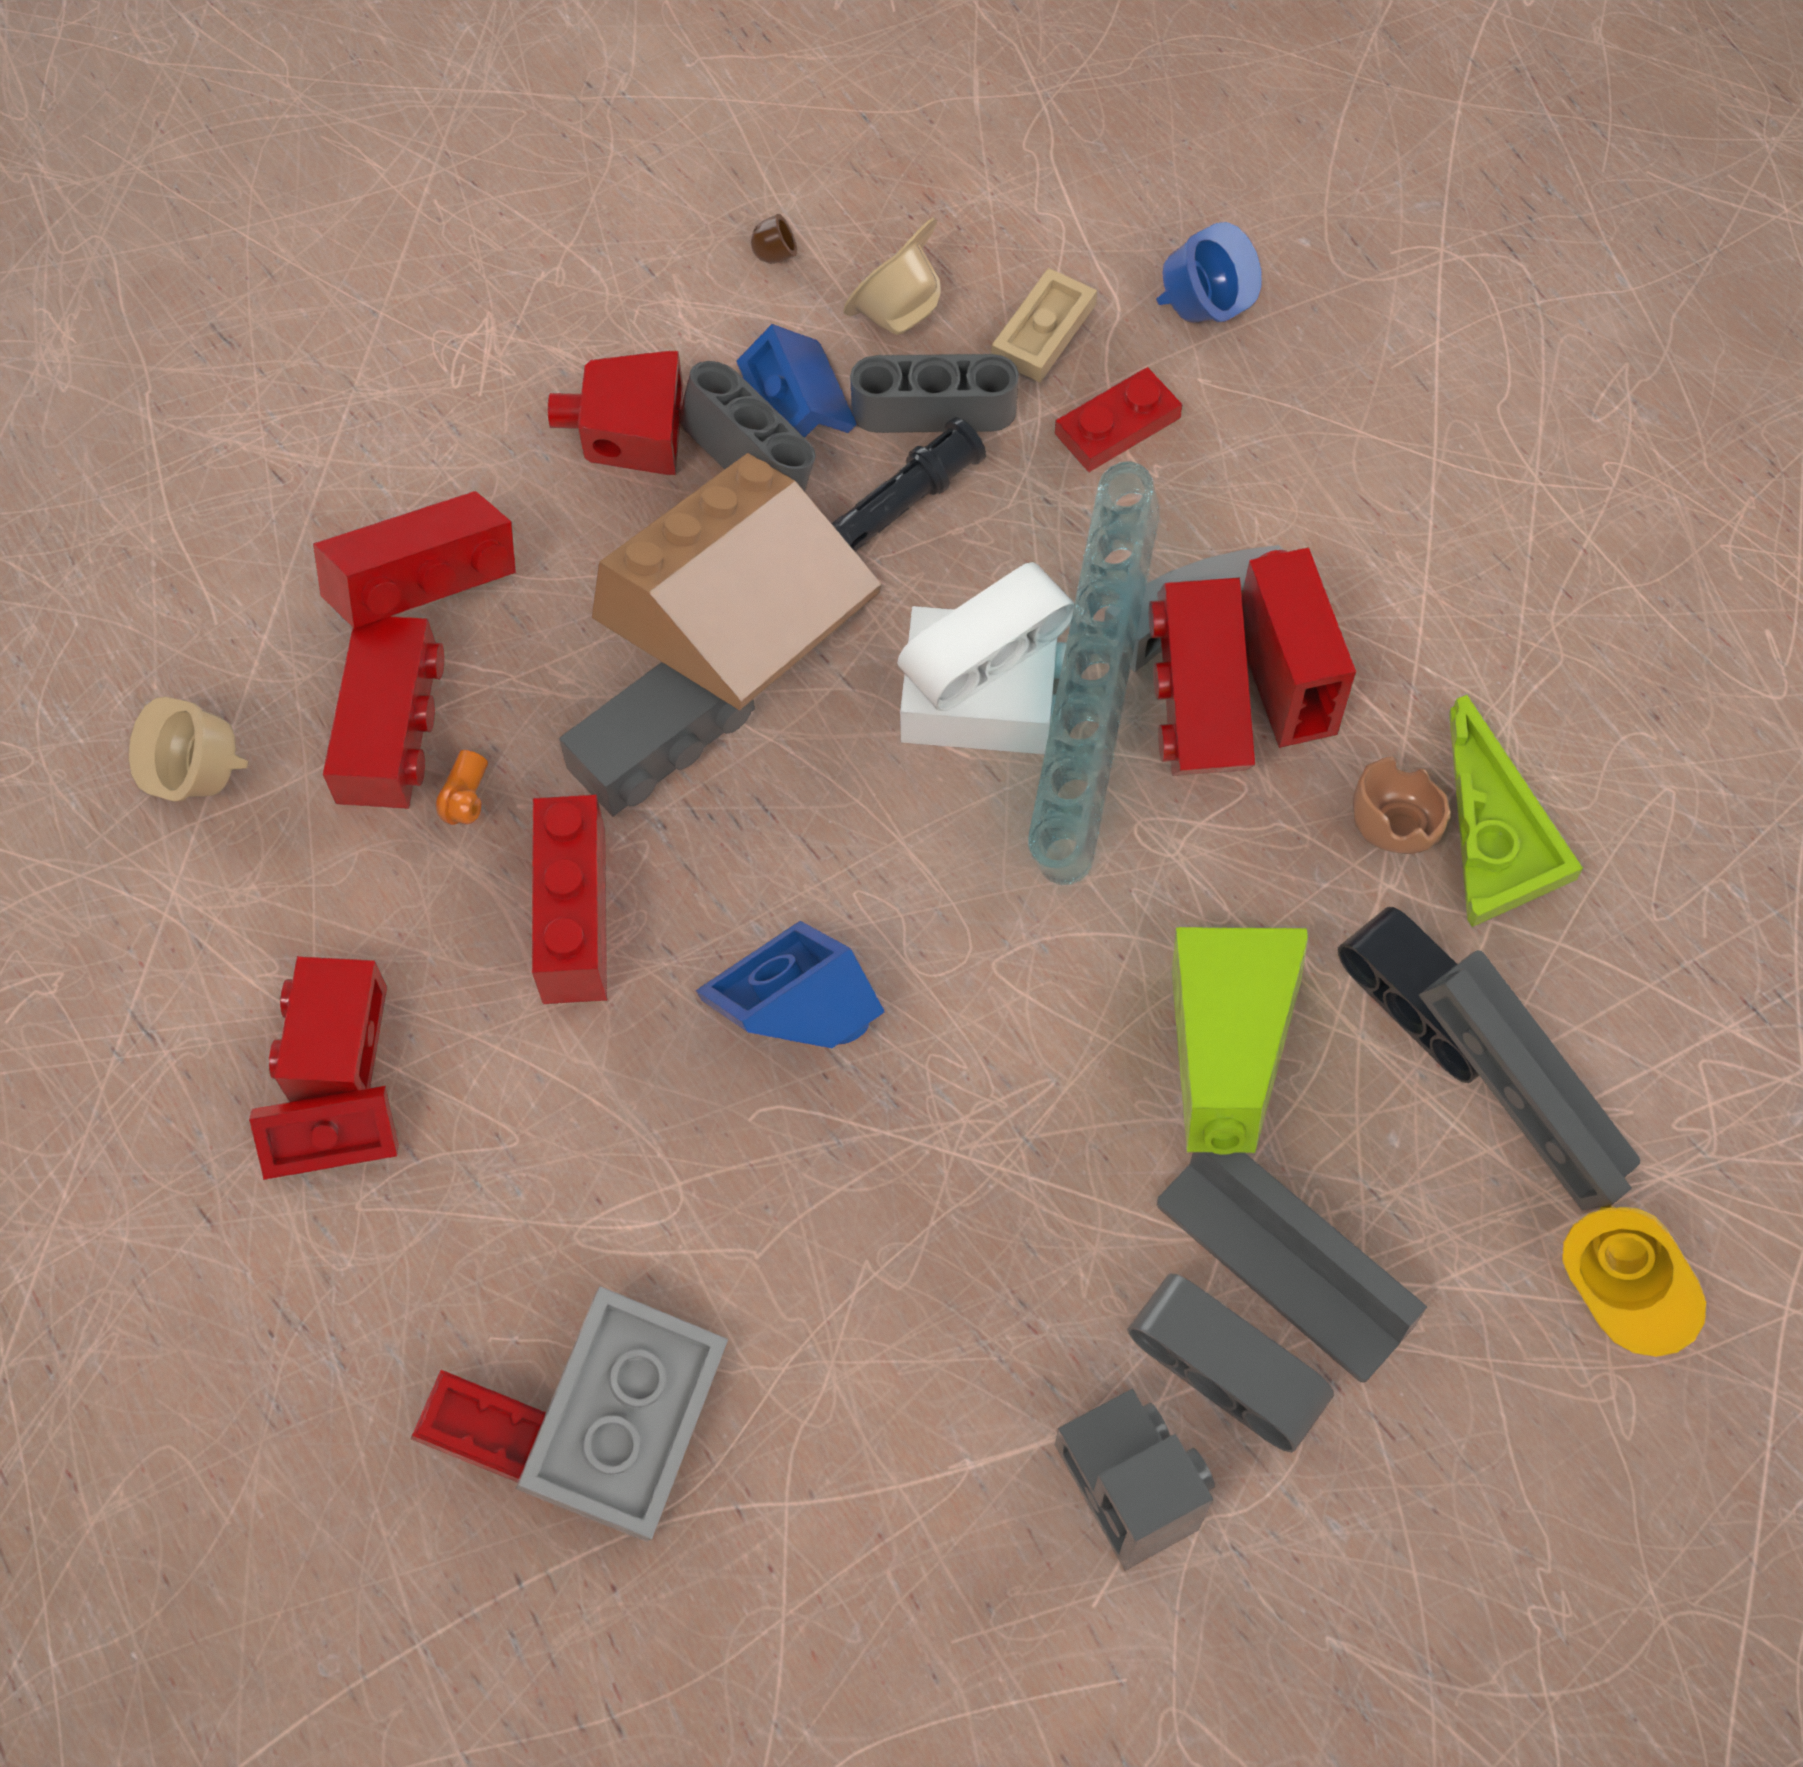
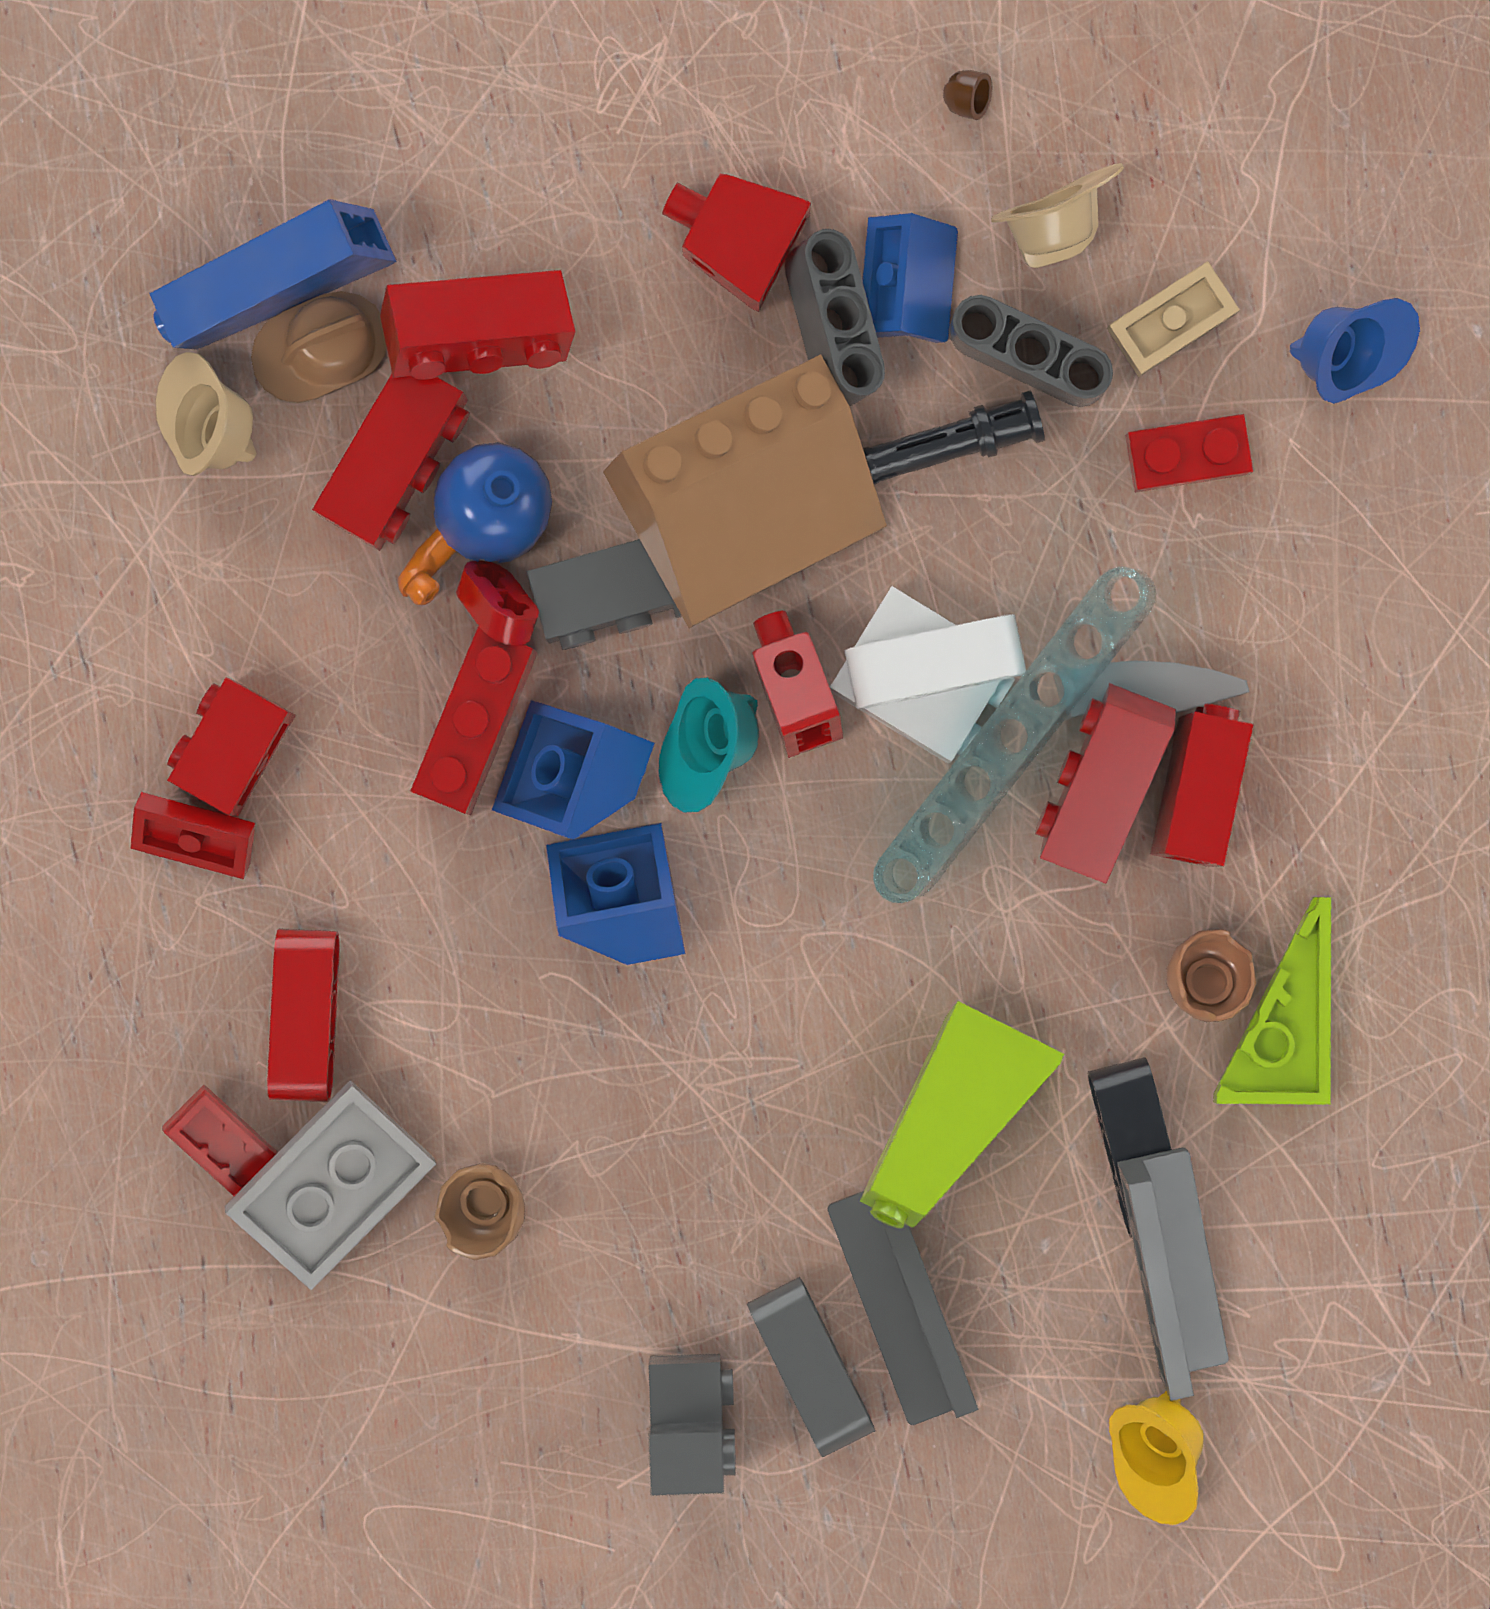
camera: 25 degrees right, 25 degrees up
(200, 606) = (272, 274): none -> blue slope
(273, 661) = (318, 347): none -> medium nougat piece
(499, 705) = (492, 503): none -> blue cylinder
(517, 1257) = (303, 1015): none -> red beam
(543, 780) = (497, 602): none -> red beam
(685, 895) = (570, 771): none -> blue slope
(797, 1362) = (480, 1211): none -> medium nougat hair
(806, 816) = (705, 742): none -> teal piece
(872, 734) = (799, 704): none -> torso

